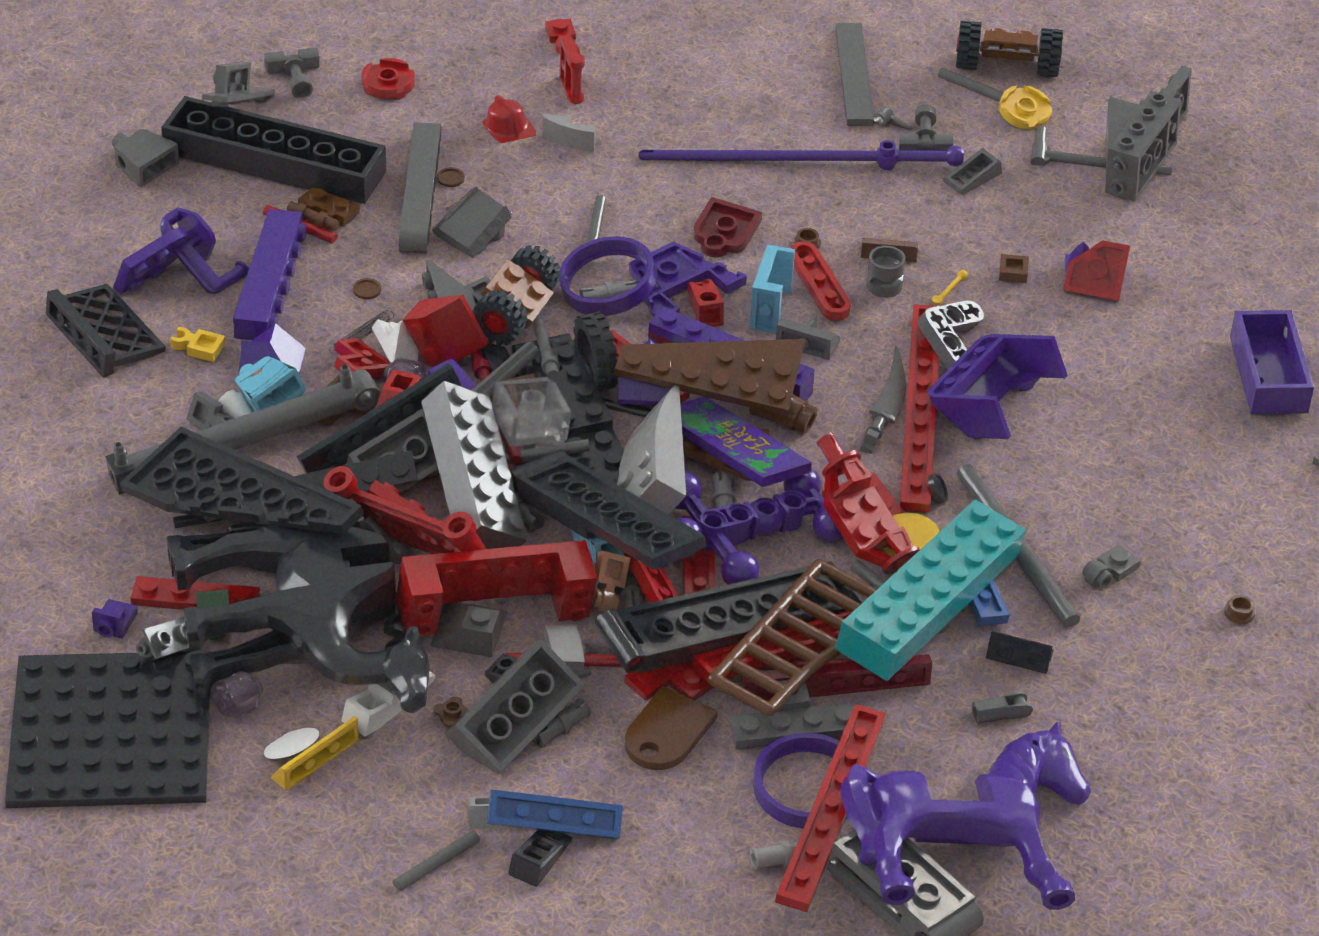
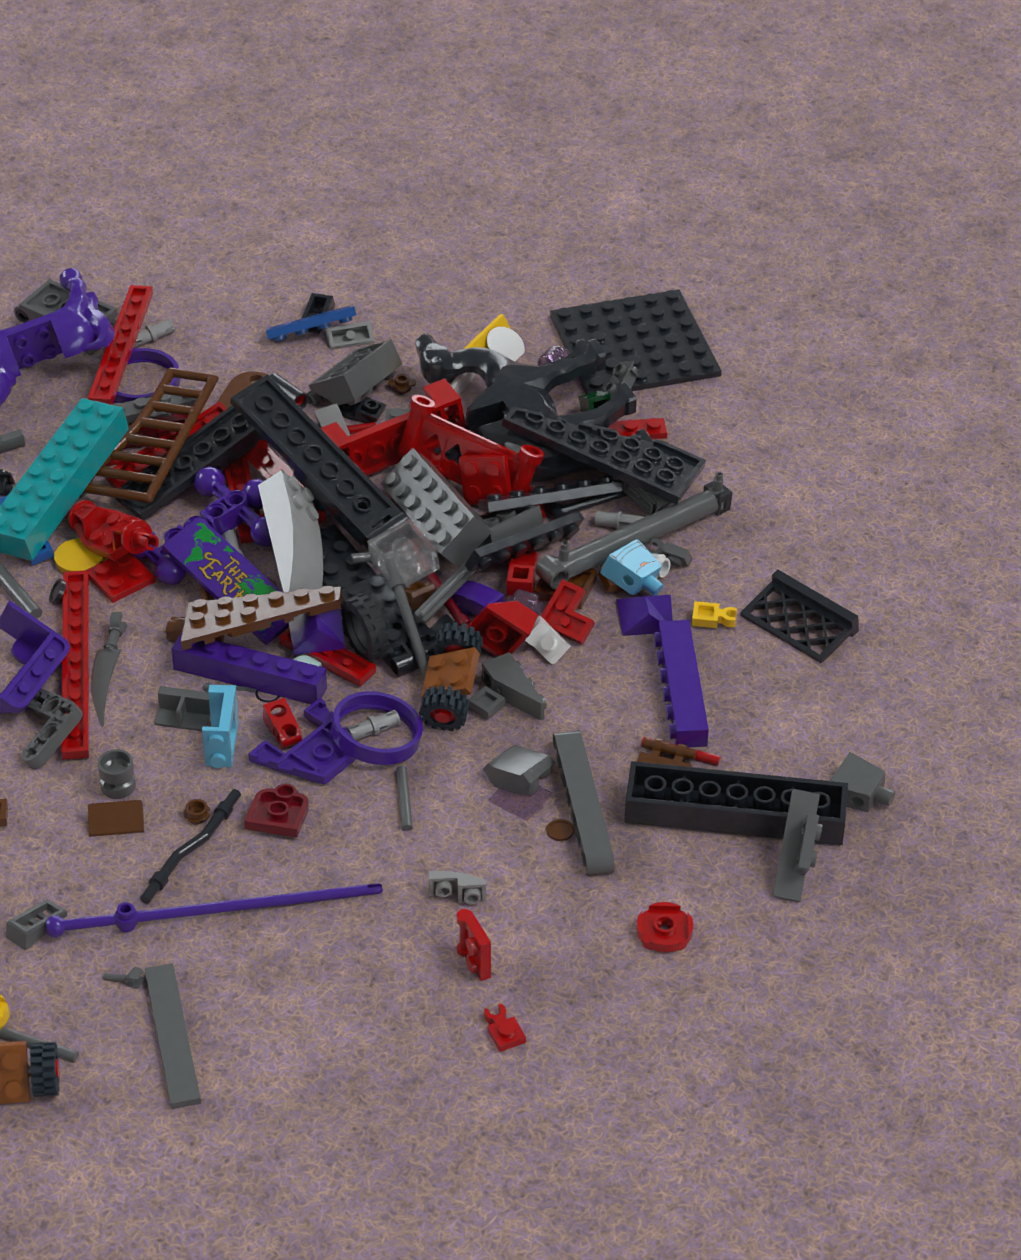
camera: 170 degrees right, 0 degrees up
(113, 618) = (669, 402): dark purple bracket -> none
(189, 243) = (779, 671): dark purple plate -> none
(294, 66) = (767, 925): dark grey bar -> none
(367, 288) = (593, 699): reddish brown piece -> none
(368, 332) = (573, 659): black piece -> none
(436, 860) = (384, 303): dark grey bar -> none
(507, 121) = (524, 901): red piece -> none
(820, 281) = (179, 766): red plate -> none
(851, 189) = (160, 878): none -> black bar
(925, 137) = (86, 953): dark grey bar -> none
(961, 275) = (44, 806): yellow hinge -> none

